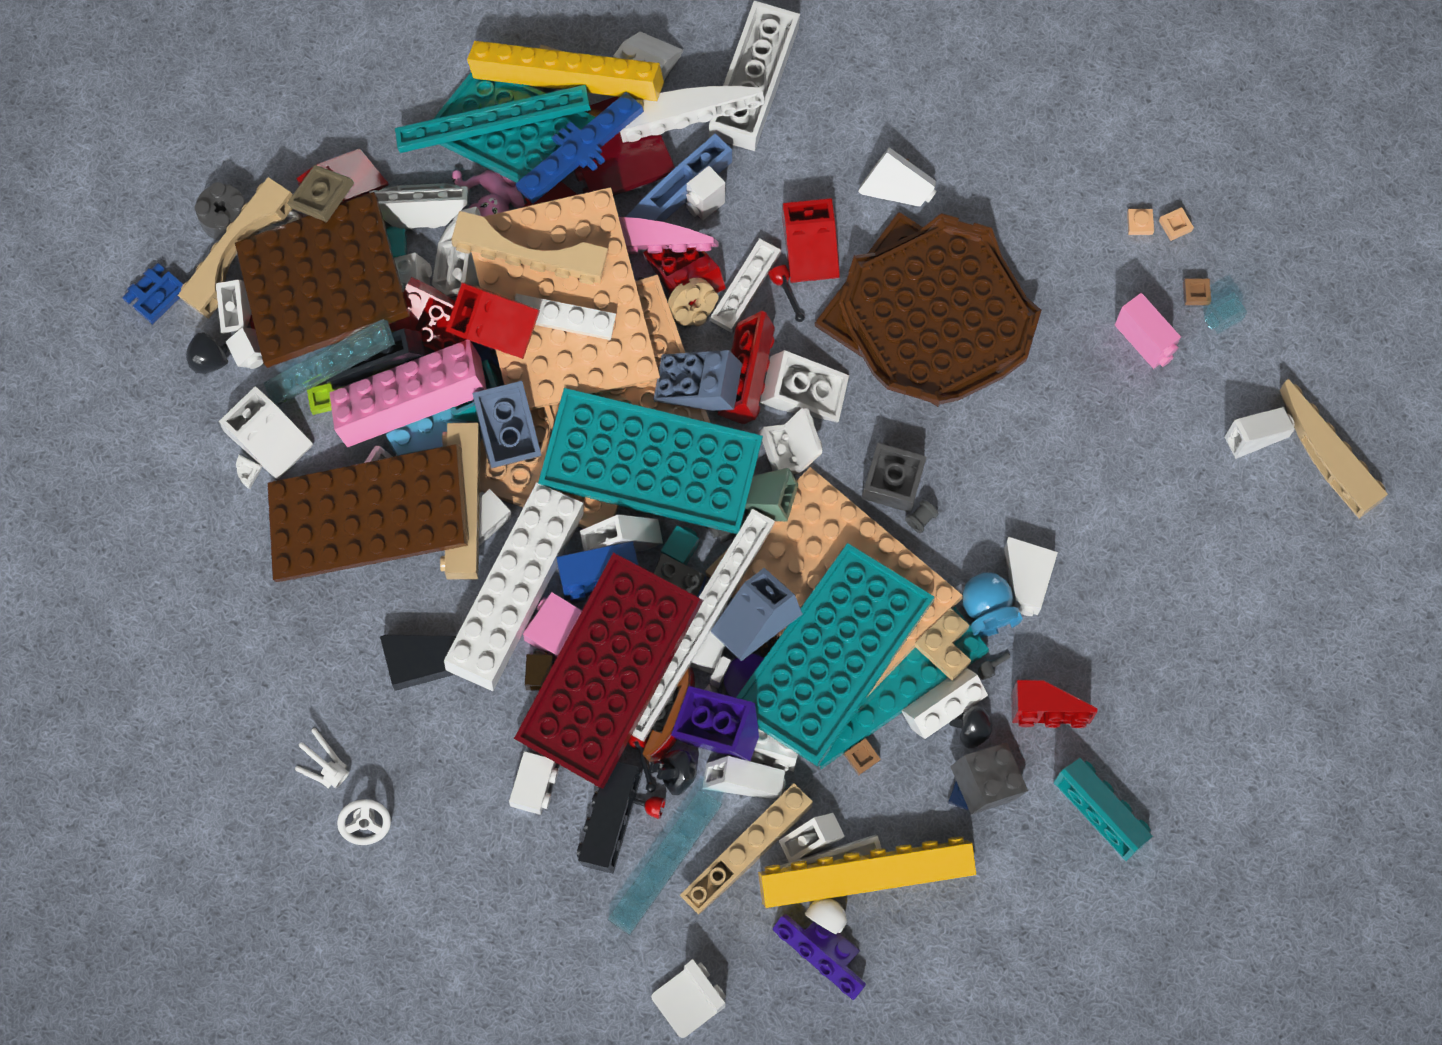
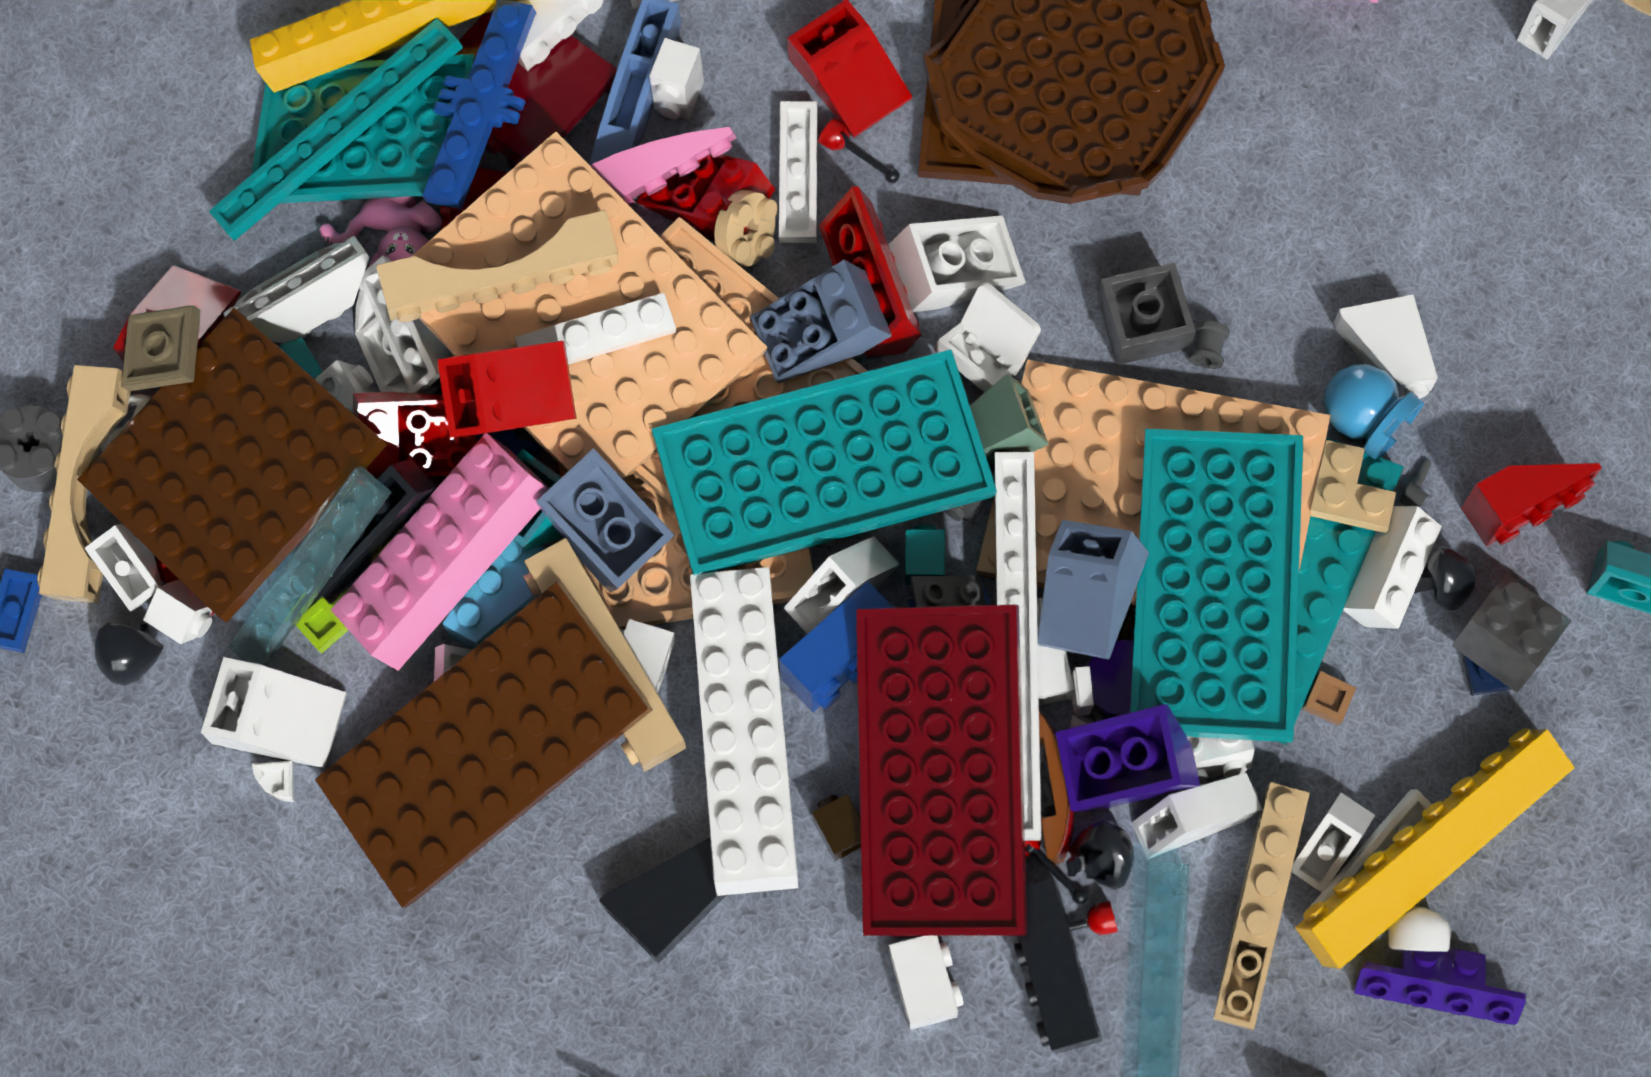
camera: 25 degrees left, 0 degrees up
(551, 624) = (824, 754): bright pink brick -> none

